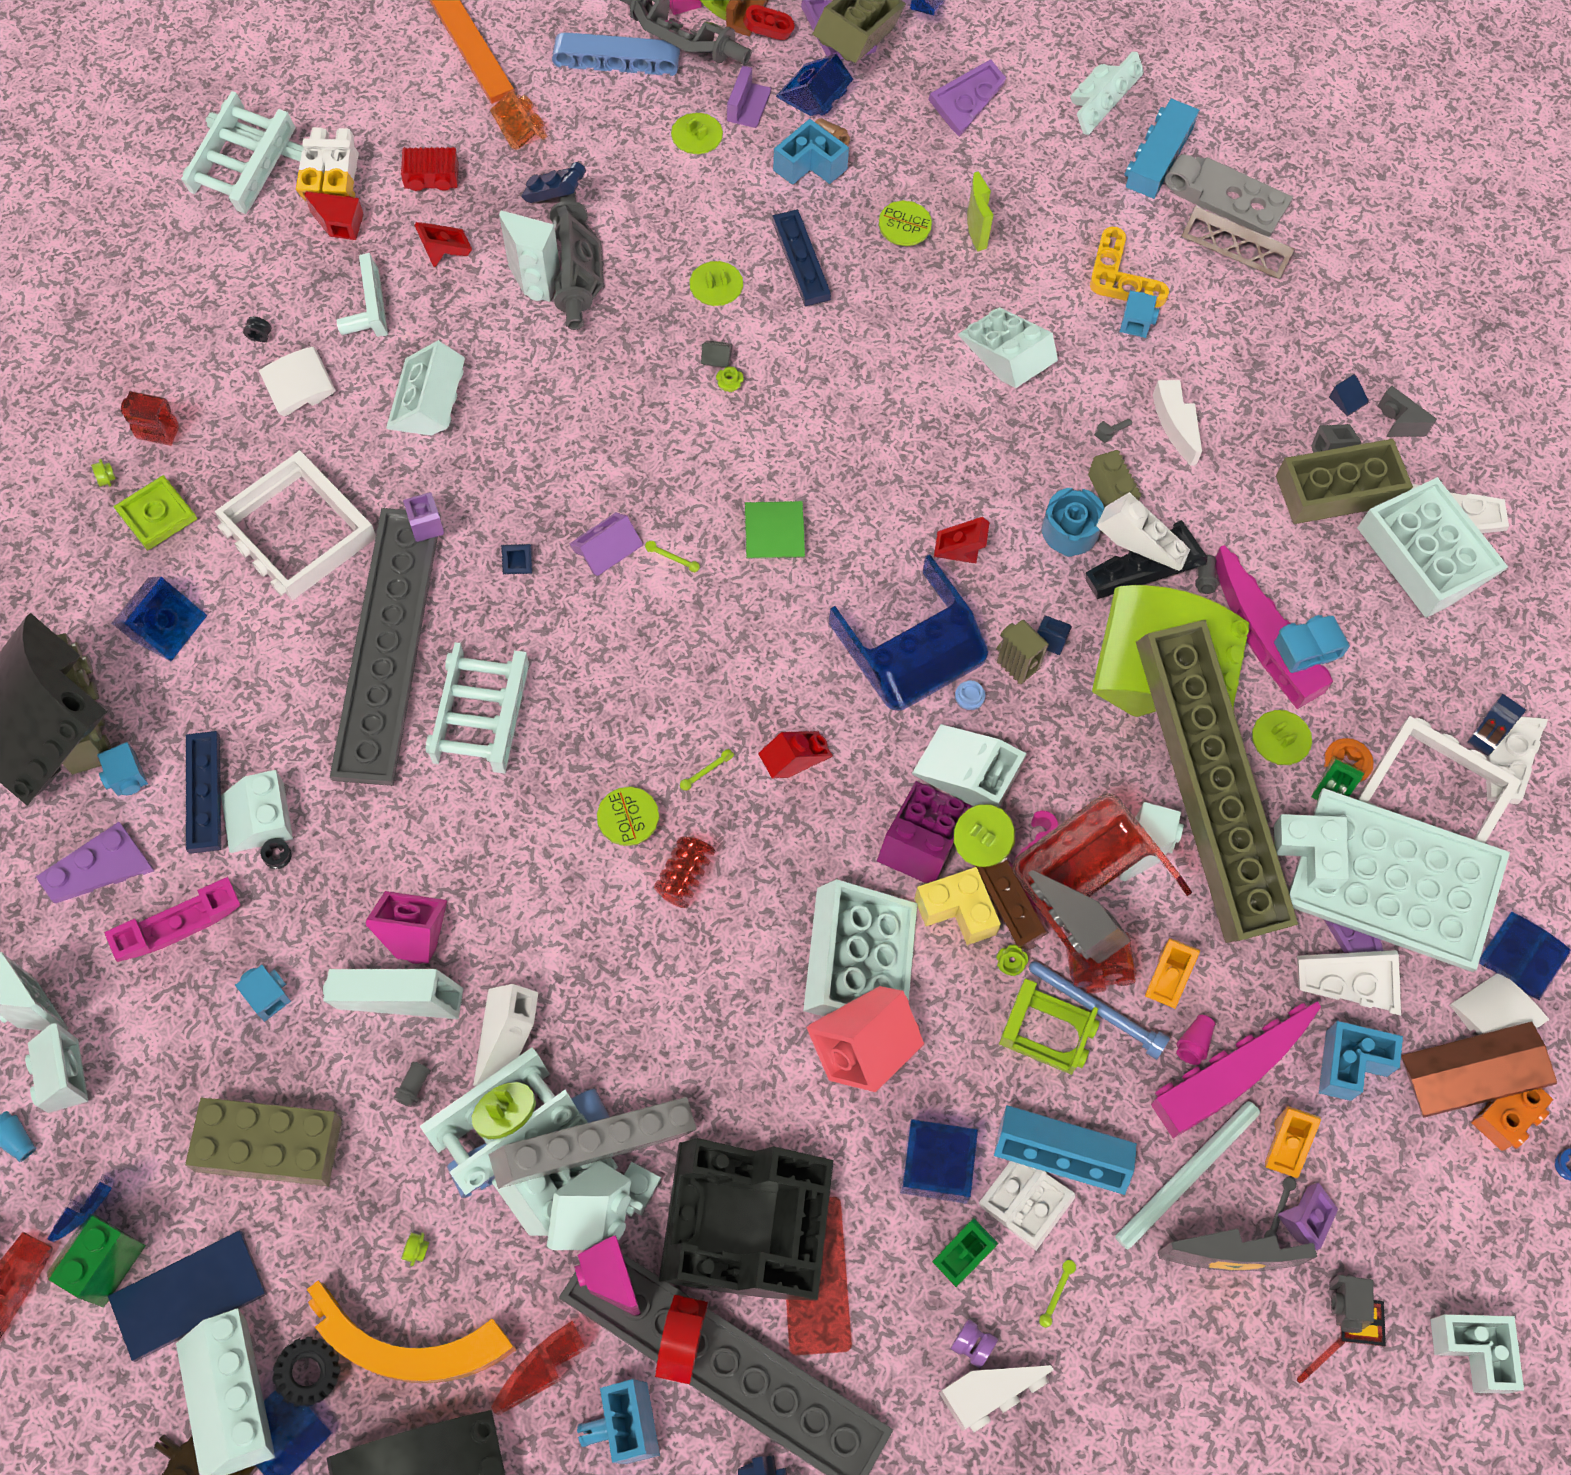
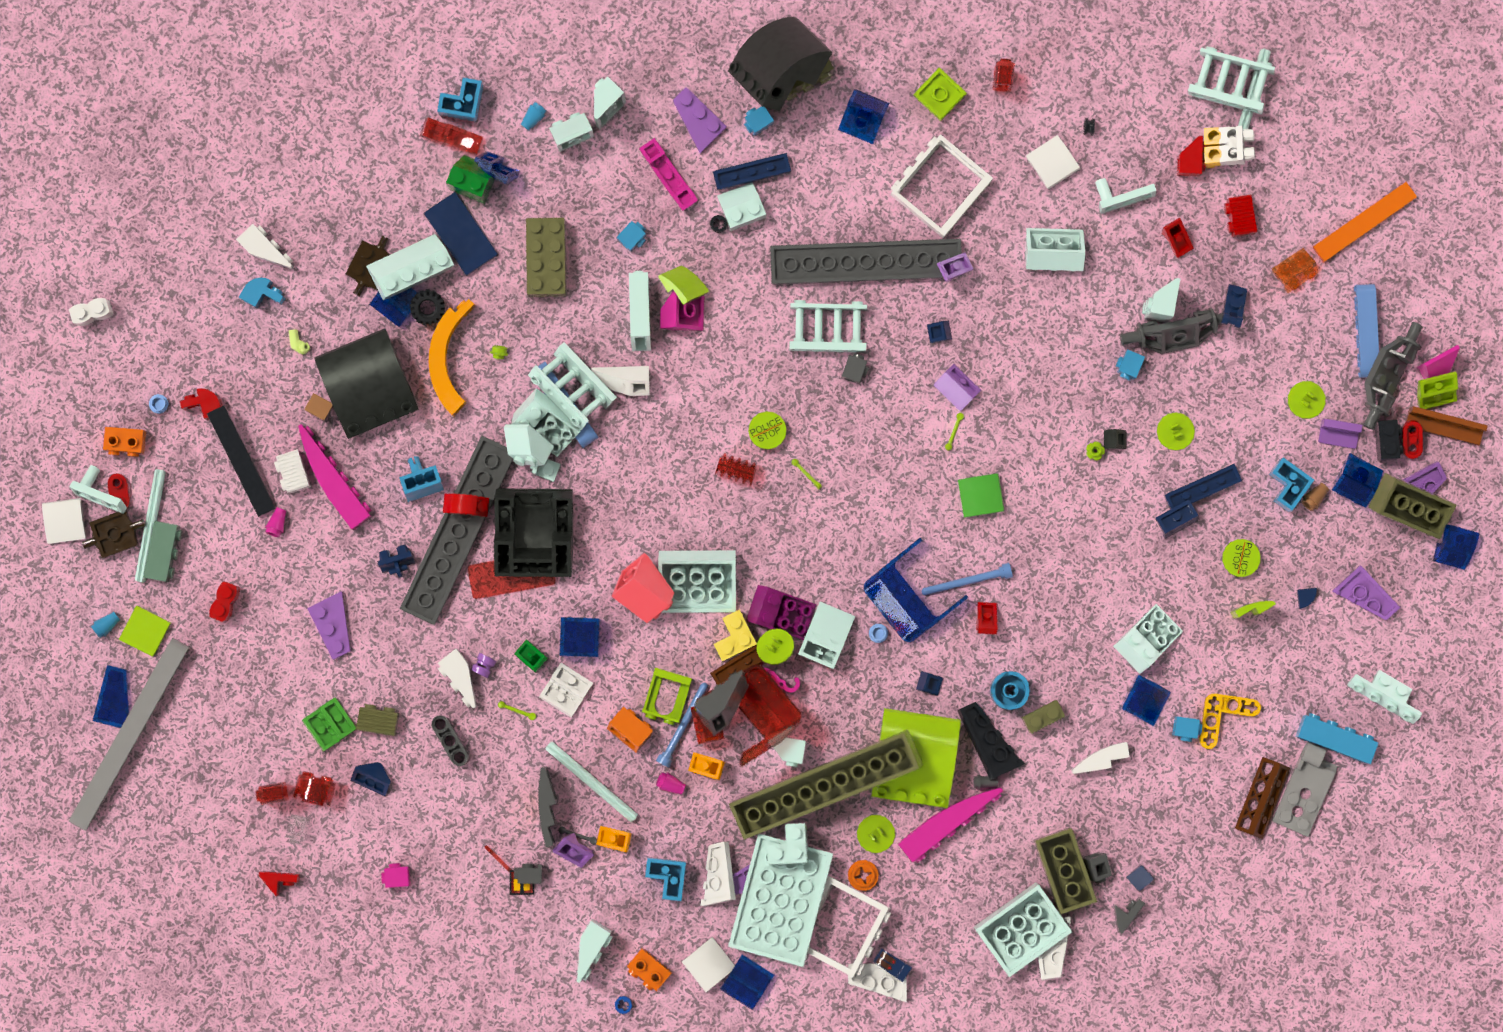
camera: 85 degrees right, 20 degrees up
(103, 473) = (964, 53): lime plate -> none
(366, 906) = (684, 283): none -> lime slope
(411, 1084) = (589, 332): dark grey pin -> none
(503, 1110) = (575, 388): lime piece -> none
(539, 1368) = (444, 431): clear red slope -> none
(552, 677) = (855, 368): none -> dark grey brick
(591, 1142) = (561, 441): light grey brick -> none
(607, 1276) = (492, 461): dark pink slope -> none
(612, 319) = (1129, 365): none -> dark azure brick
(769, 47) = (1387, 440): none -> black brick
(794, 752) = (822, 527): red slope -> none
(841, 286) = (1177, 519): none -> dark blue panel
(892, 512) = (1003, 571): none -> medium blue piece
(965, 162) = (1306, 596): none -> dark blue tile
(1015, 967) = (703, 671): lime plate -> none
(1021, 651) = (907, 661): olive brick -> none
(1065, 1150) = (594, 708): dark azure brick -> none
(1093, 362) = (1145, 700): none -> clear blue slope
(1104, 1092) = (630, 729): none -> orange brick
(1106, 432) = (1088, 710): dark grey hand -> none
(1124, 1423) = (450, 750): none -> dark grey beam
(1138, 530) = (999, 735): white slope -> none
(1229, 1075) = (651, 804): dark pink slope -> none
(1311, 643) = (933, 846): dark azure brick -> none
(1339, 778) = (845, 867): green slope -> none
(1477, 1200) = (590, 944): none -> light aqua slope
(1479, 1069) = (669, 947): slope -> none
(1490, 1345) = (516, 948): light aqua brick -> none

